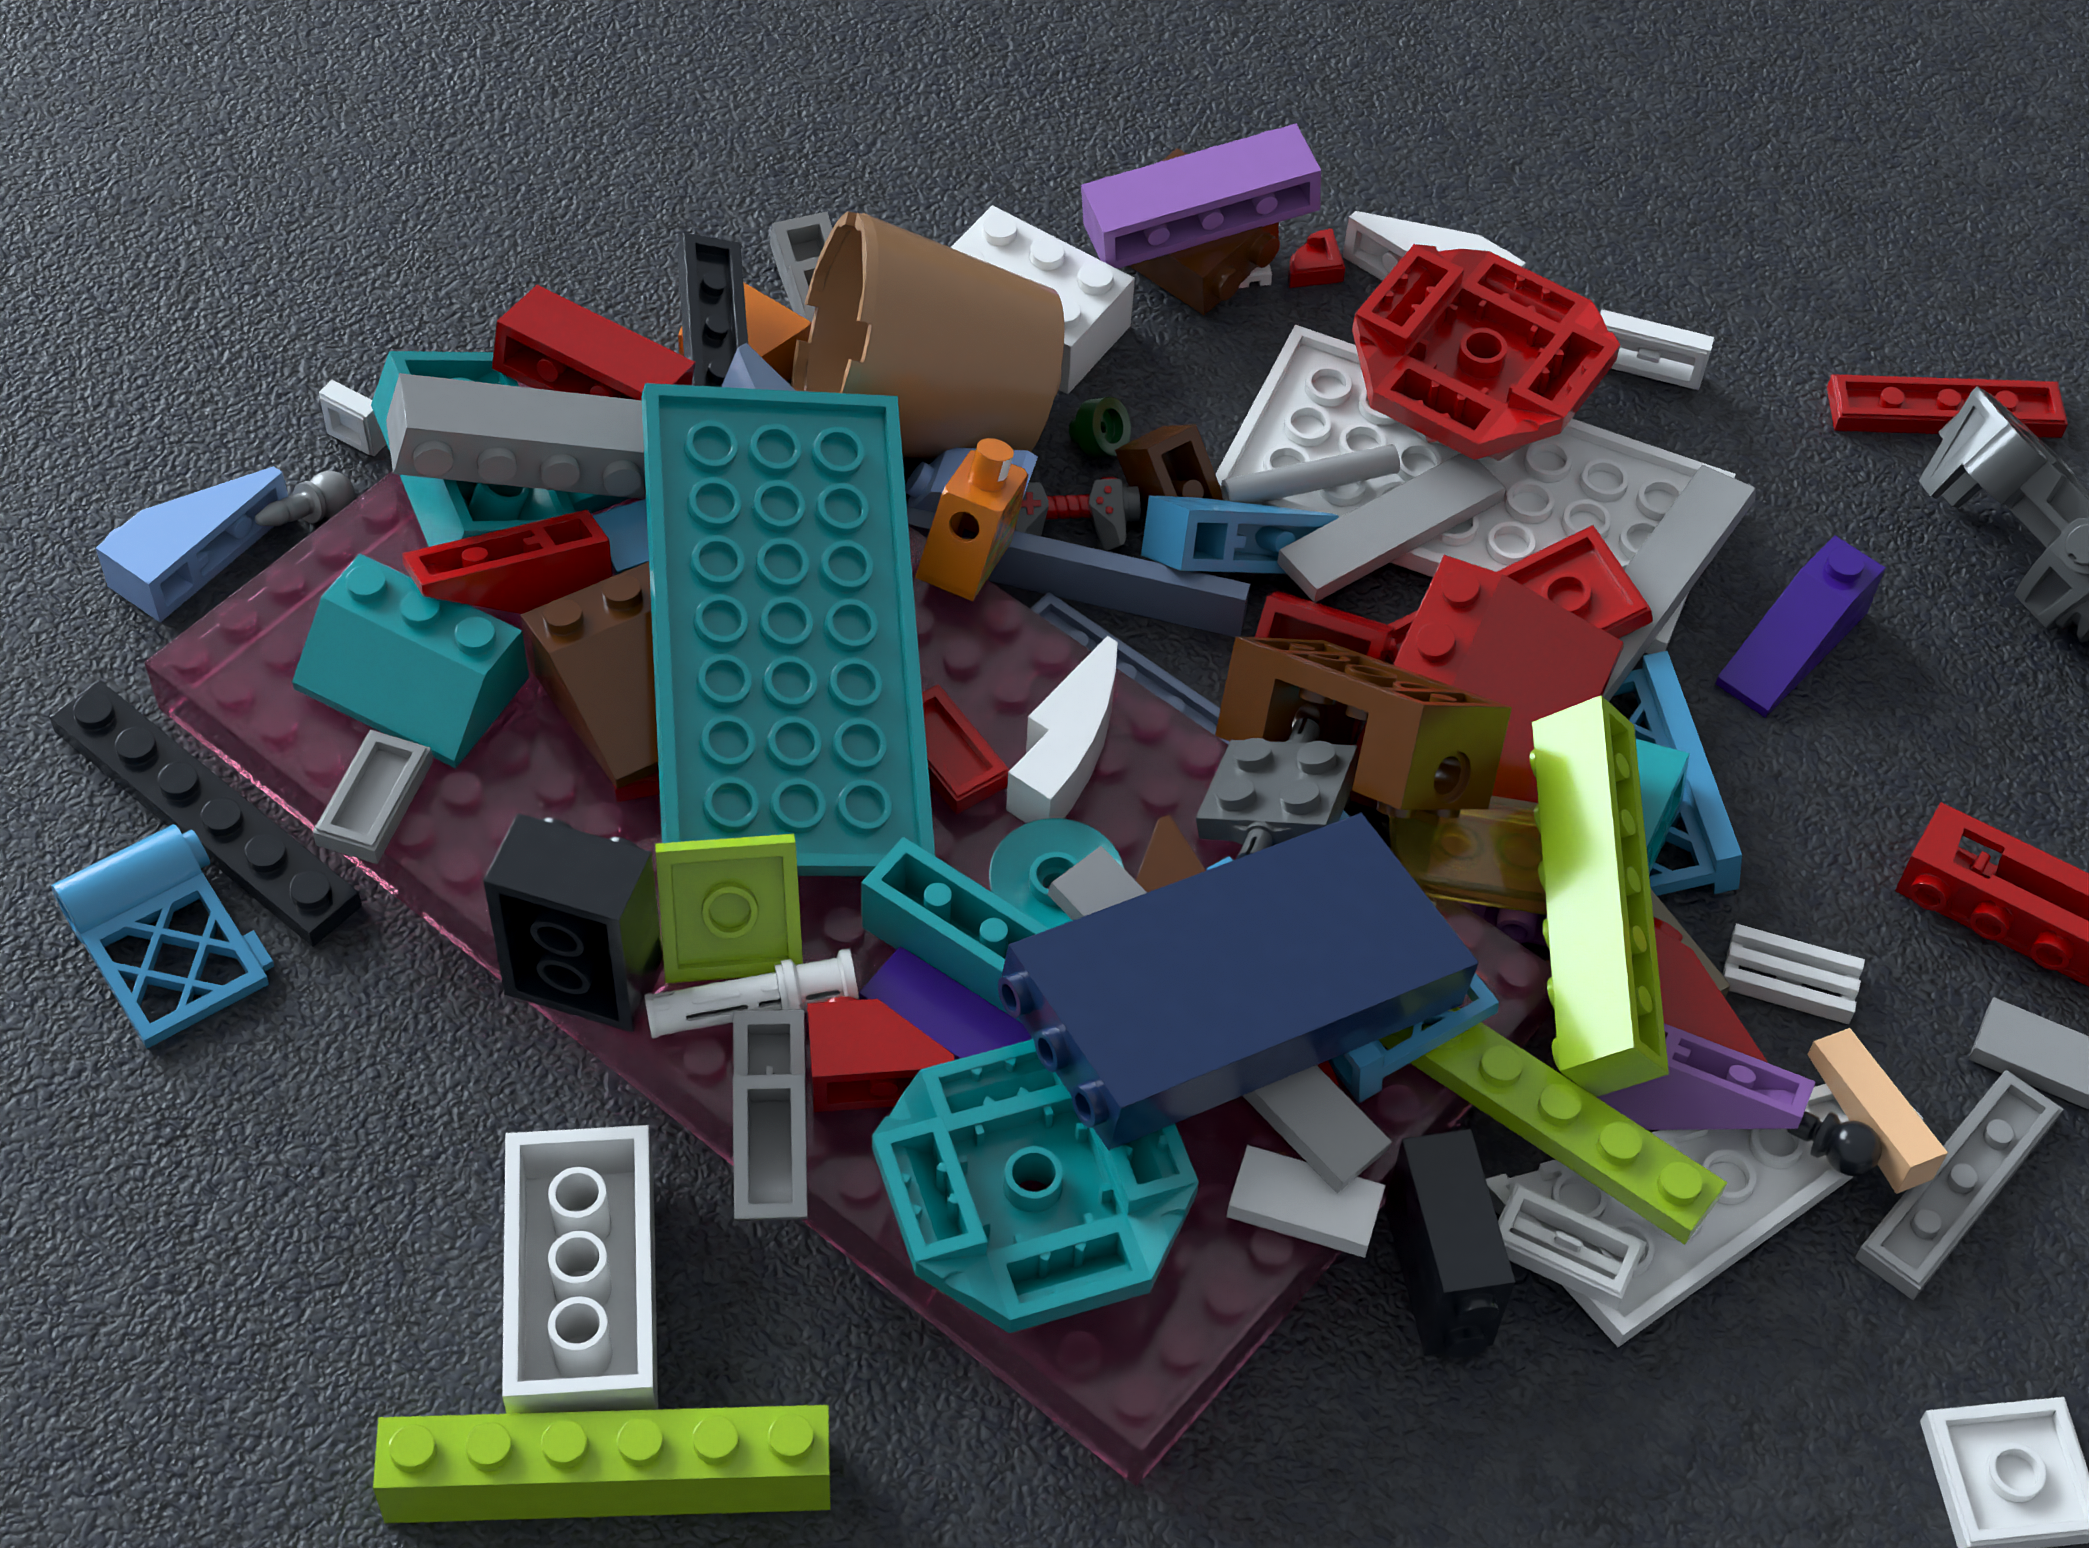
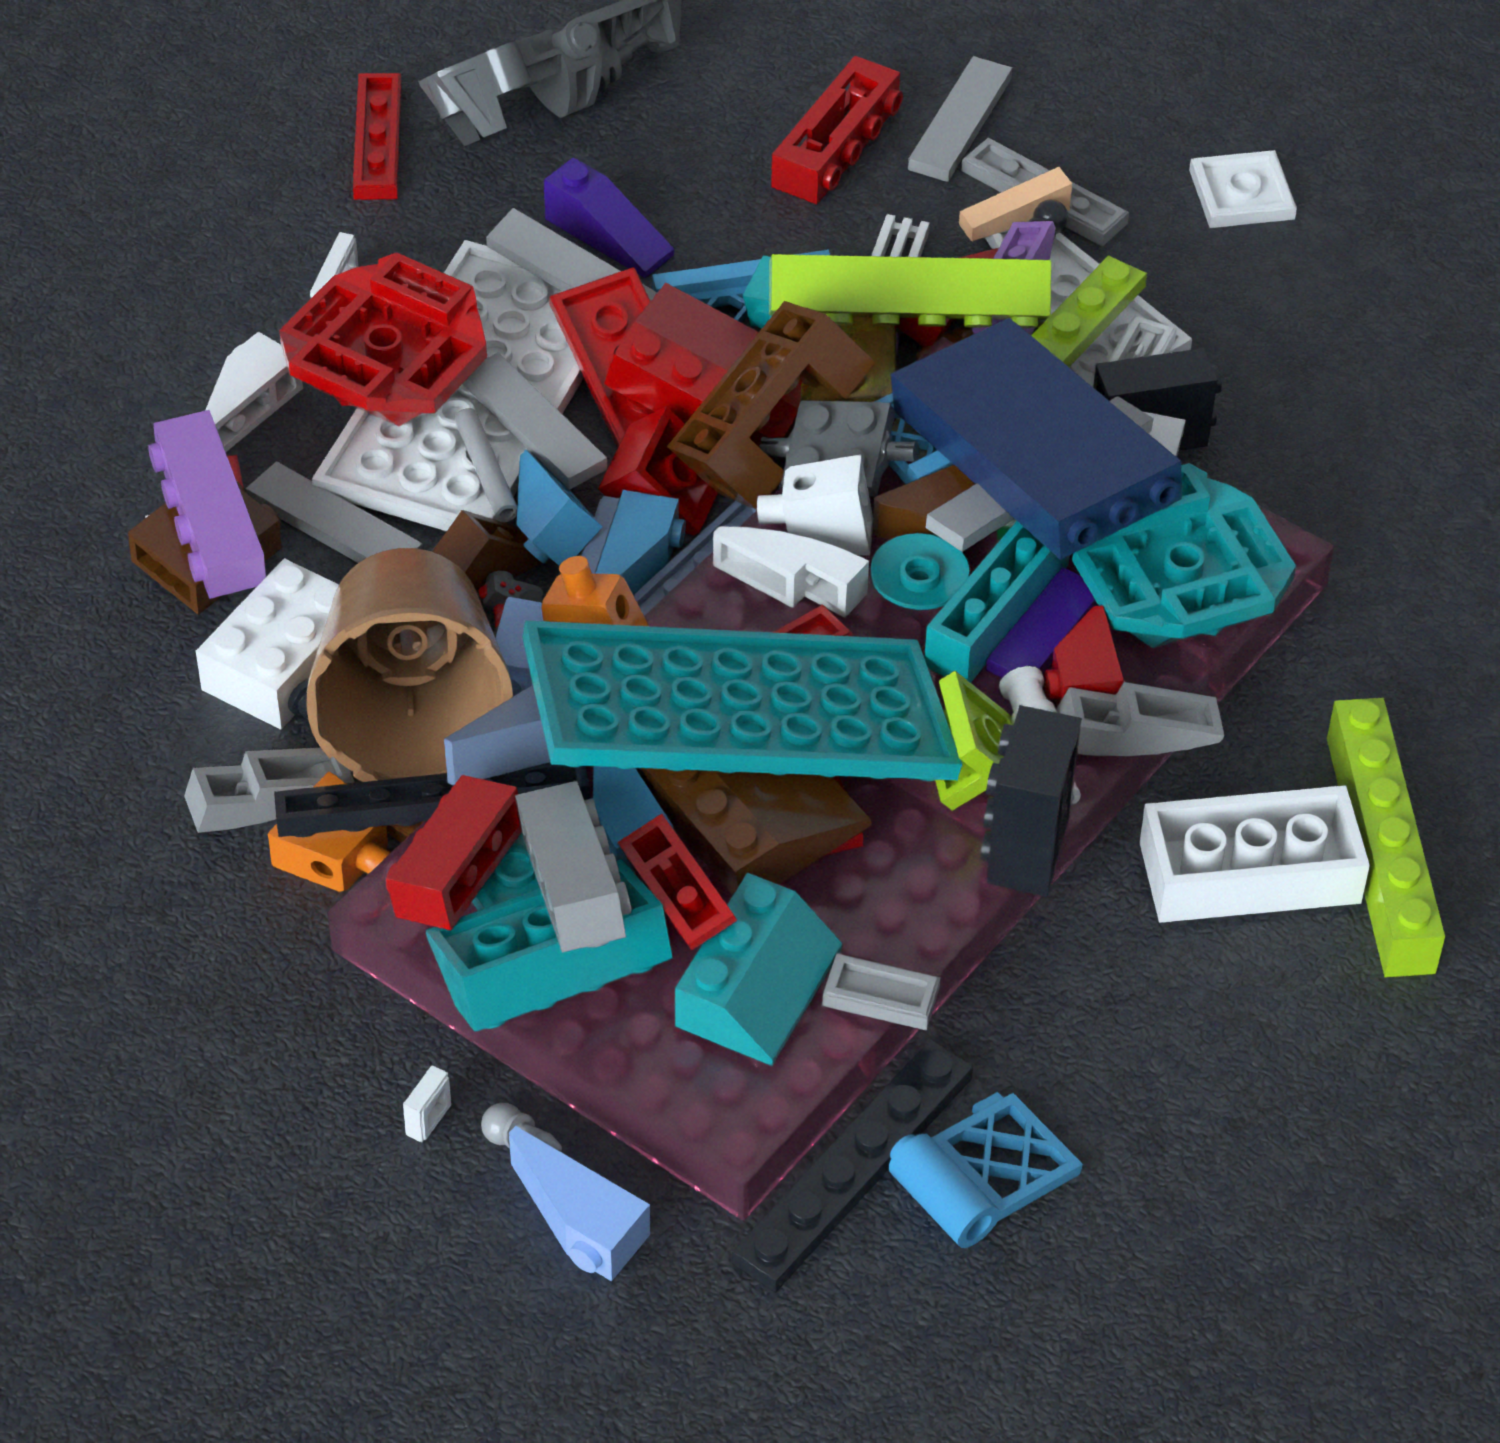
camera: 90 degrees left, 5 degrees down
(1165, 744) = (824, 503): none -> white torso
(1168, 624) = (642, 537): none -> dark azure slope
(1240, 357) = (326, 515): none -> light grey tile

